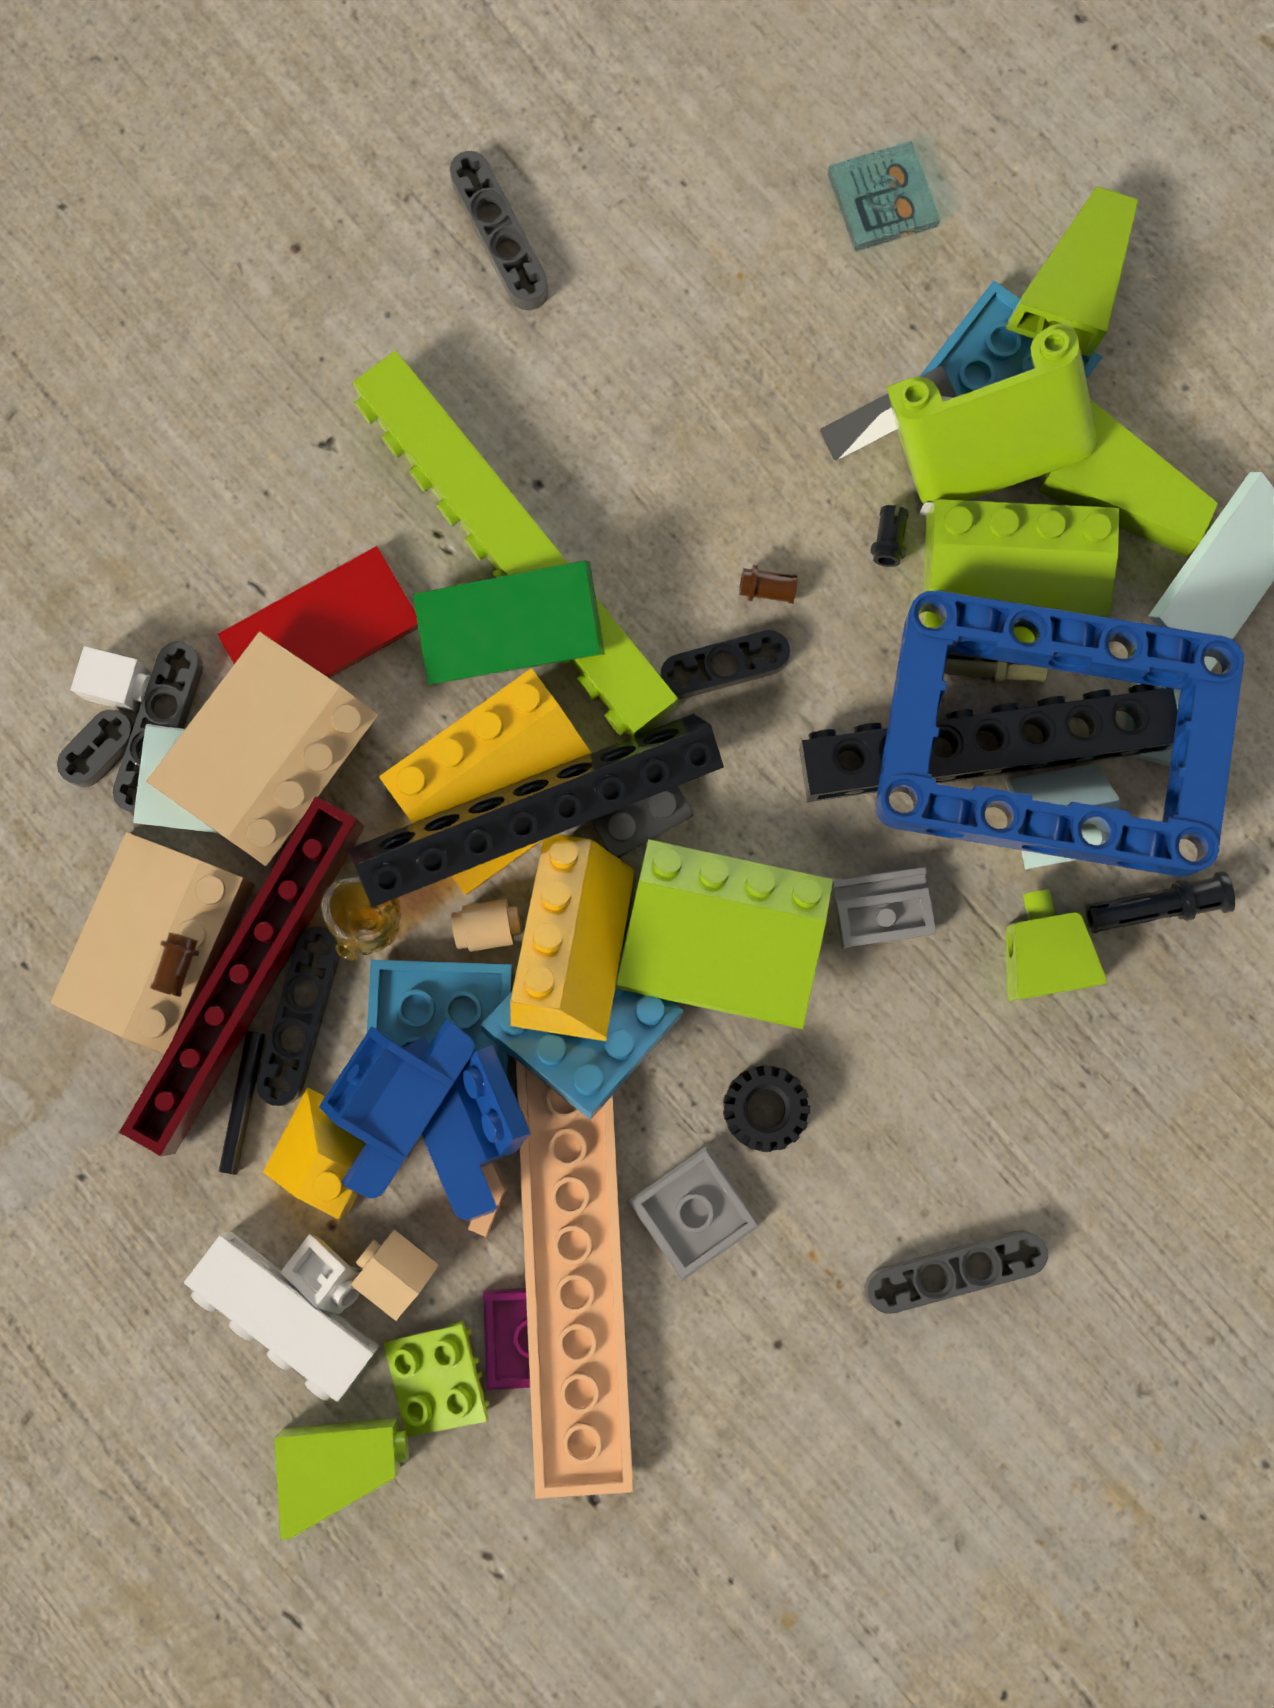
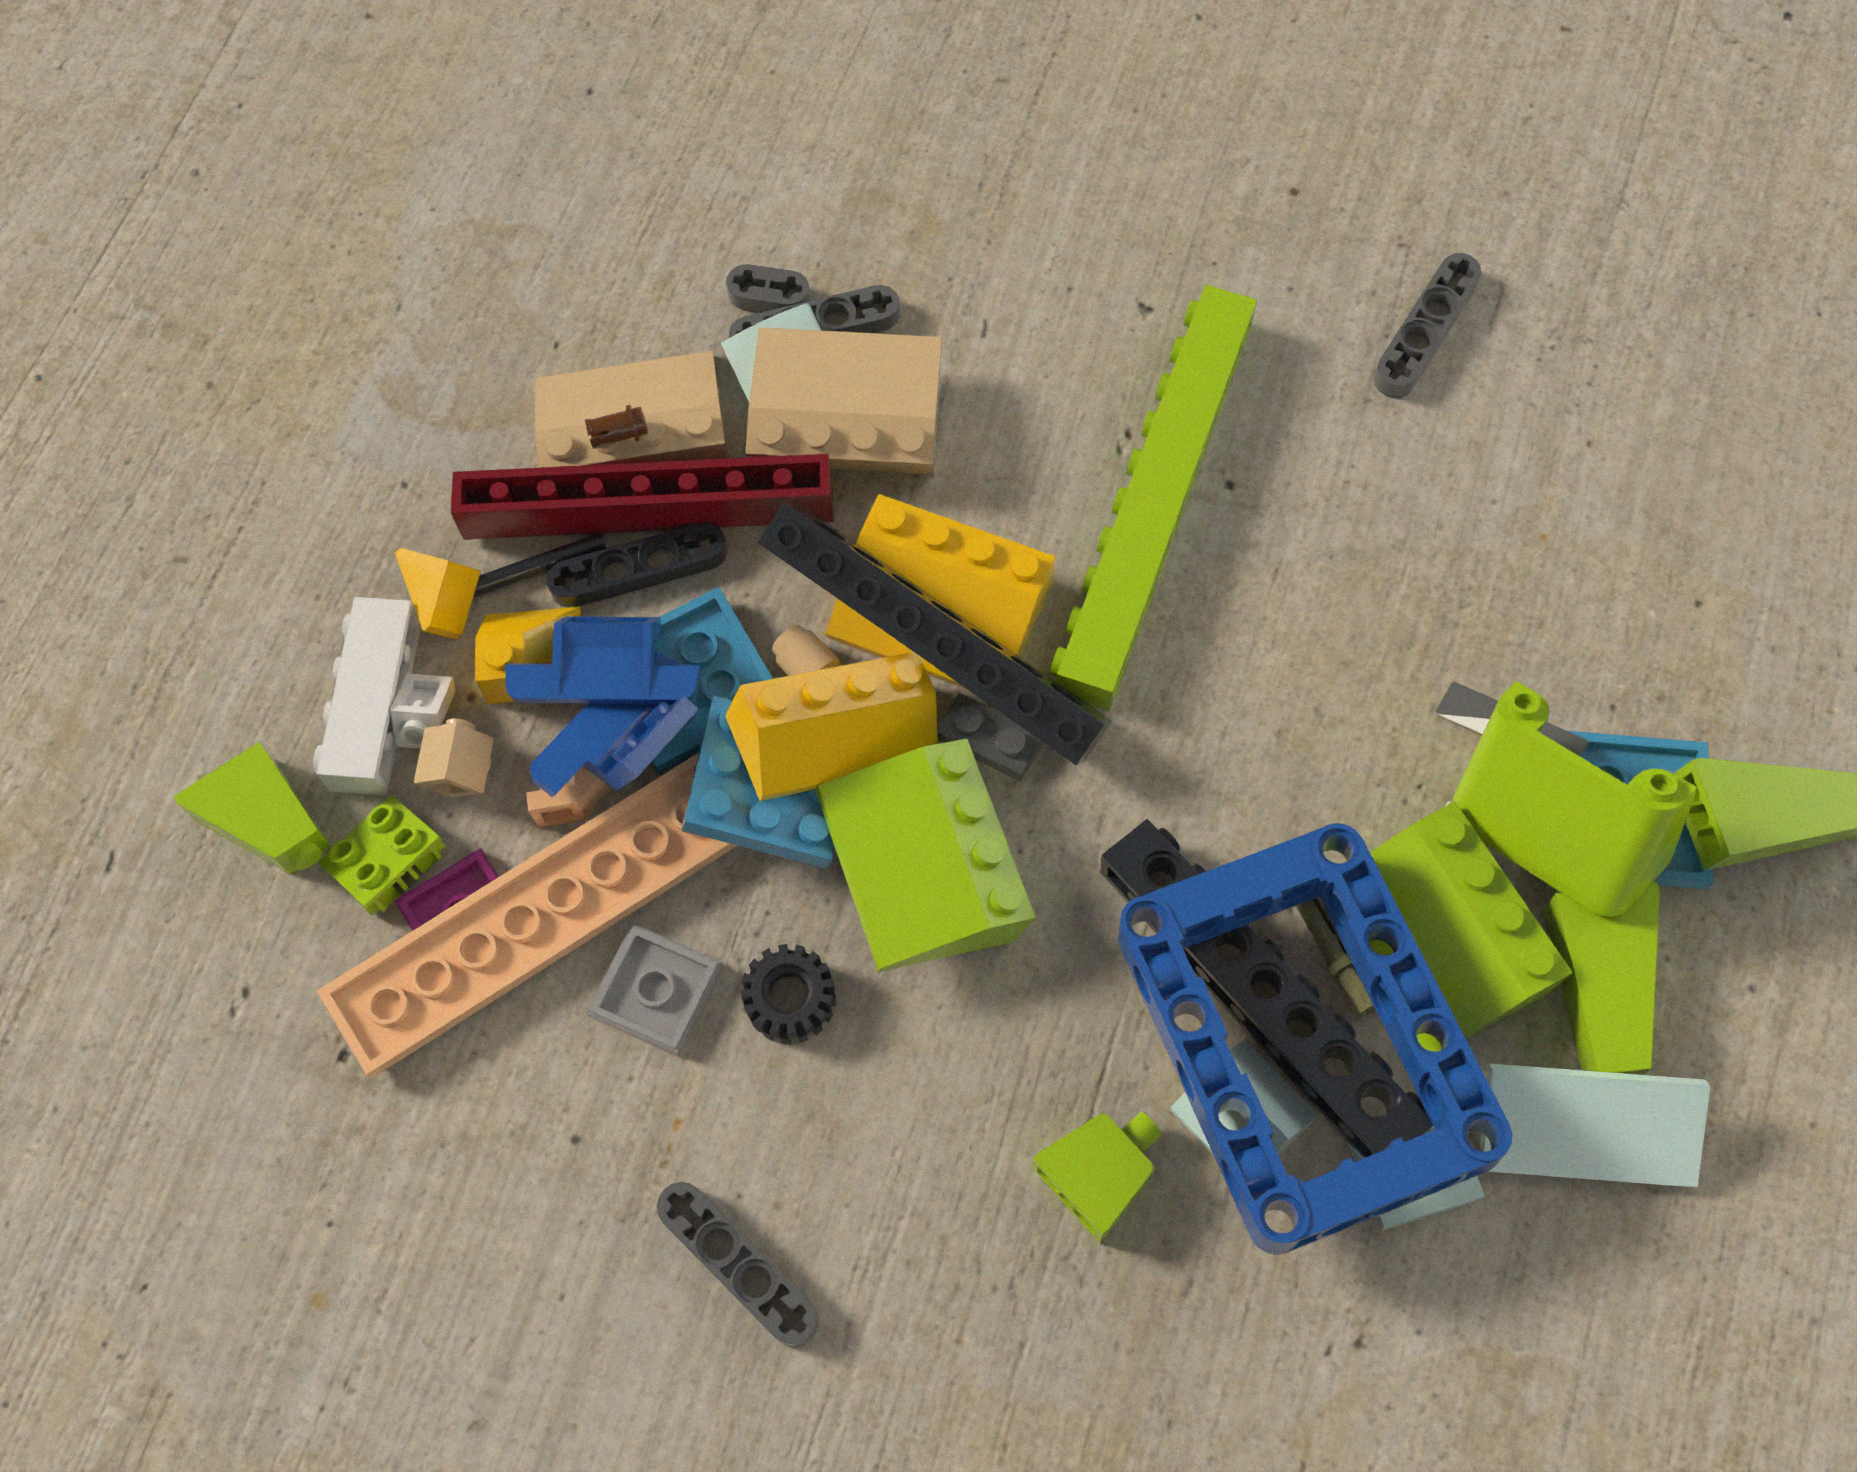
camera: 65 degrees right, 15 degrees down
(110, 679) = (830, 262): white brick -> none
(216, 1203) = (439, 591): none -> yellow slope
(333, 617) = (999, 397): red tile -> none
(354, 921) = (739, 558): clear yellow helmet -> none
(509, 623) = (1084, 520): green tile -> none
(759, 666) = (1212, 737): black beam -> none
(767, 585) = (1274, 717): reddish brown pin -> none
(883, 196) = (1712, 609): clear light blue tile -> none
(883, 908) = (1043, 991): light grey plate -> none
(889, 547) = (1388, 799): black pin -> none
(1181, 900) = (1237, 1273): black pin -> none

